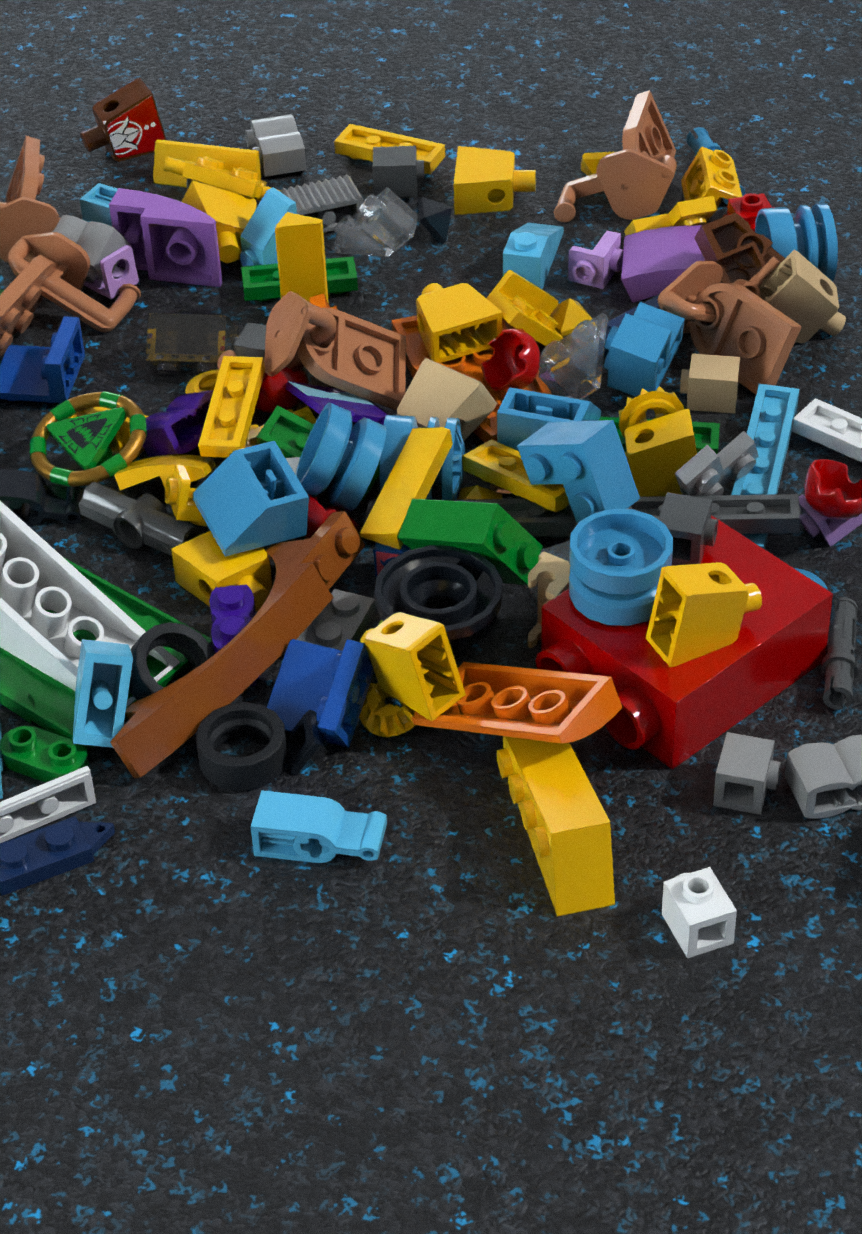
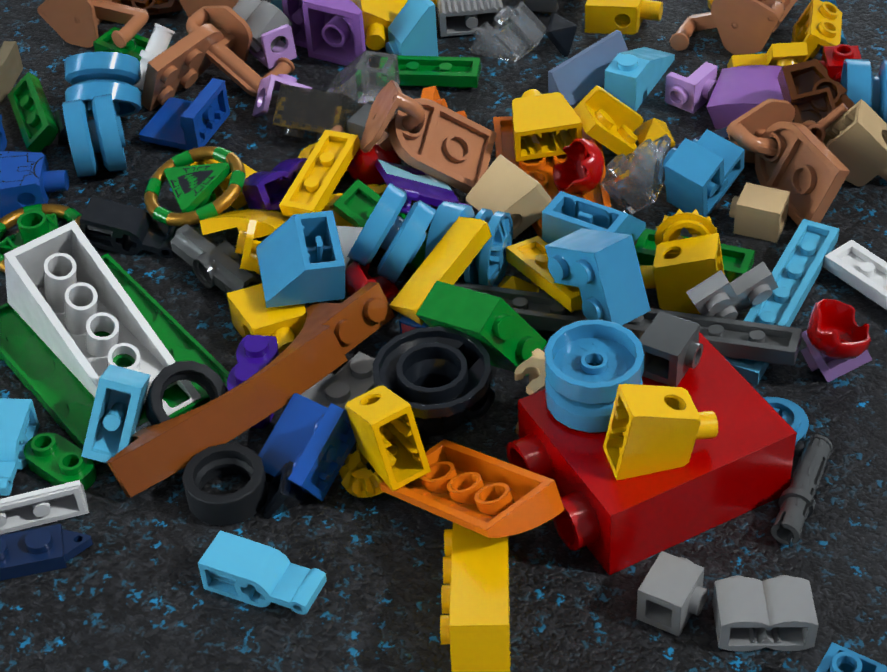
camera: 15 degrees right, 0 degrees up
(129, 315) = (266, 87): none -> lavender bracket
(238, 292) = (366, 76): none -> clear slope
(301, 256) = (422, 54): yellow slope -> none
(478, 253) = (586, 69): none -> sand blue slope

